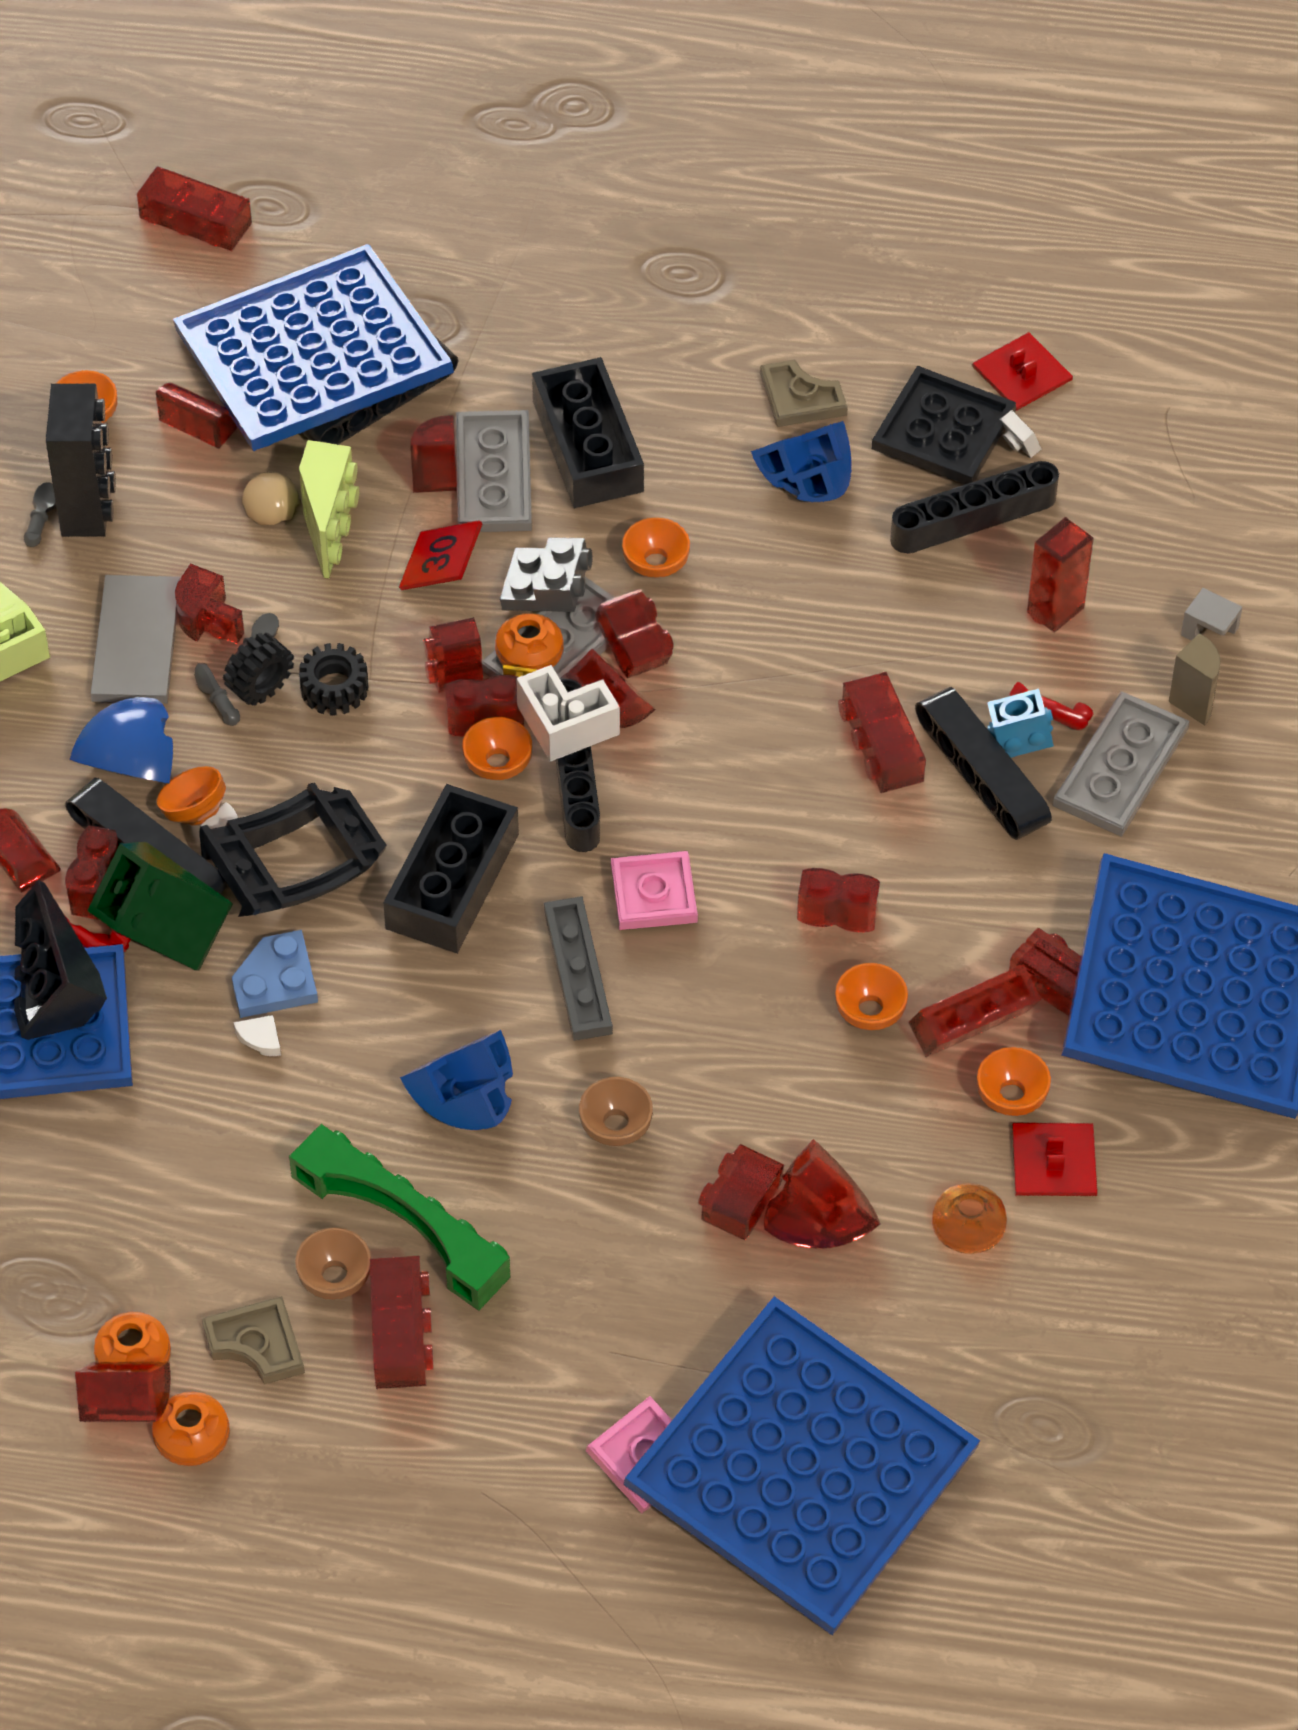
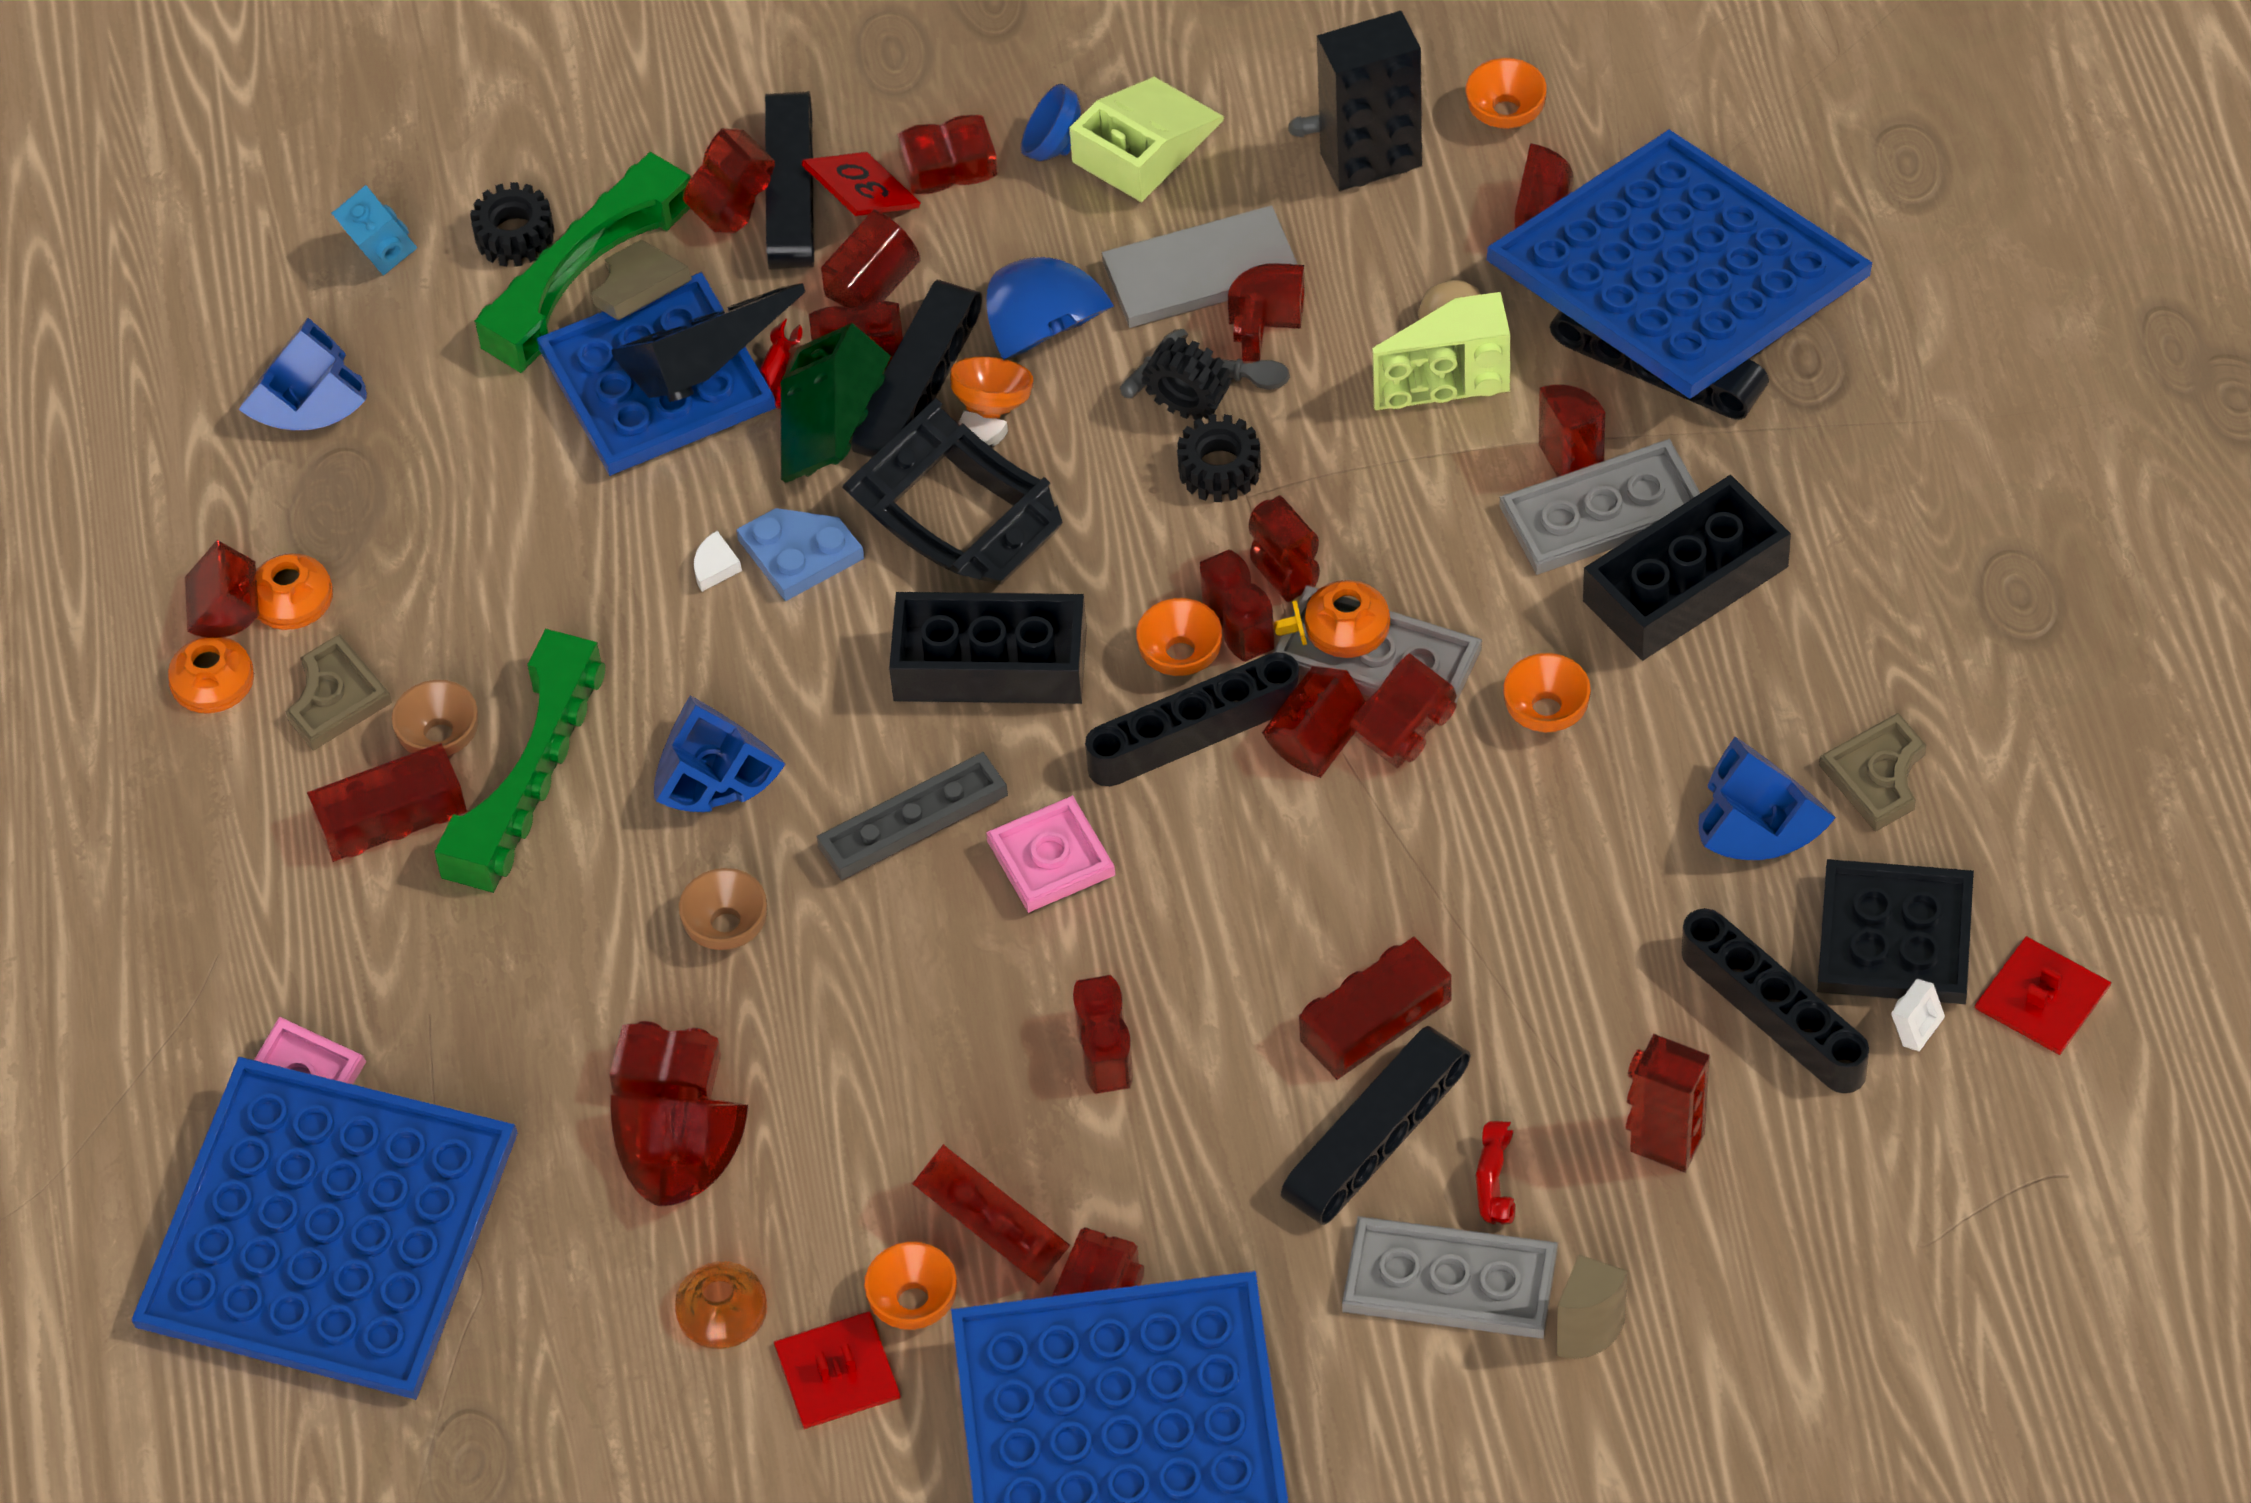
camera: 75 degrees right, 0 degrees up
(194, 208) = (1846, 89): clear red brick -> none
(440, 555) = (1438, 493): red piece -> none
(547, 576) = (1454, 603): plate -> none
(565, 719) = (1212, 664): white brick -> none
(871, 983) = (973, 1090): orange piece -> none
(1021, 723) = (1439, 1140): dark azure head -> none
(1210, 612) = (1713, 1301): light grey panel -> none

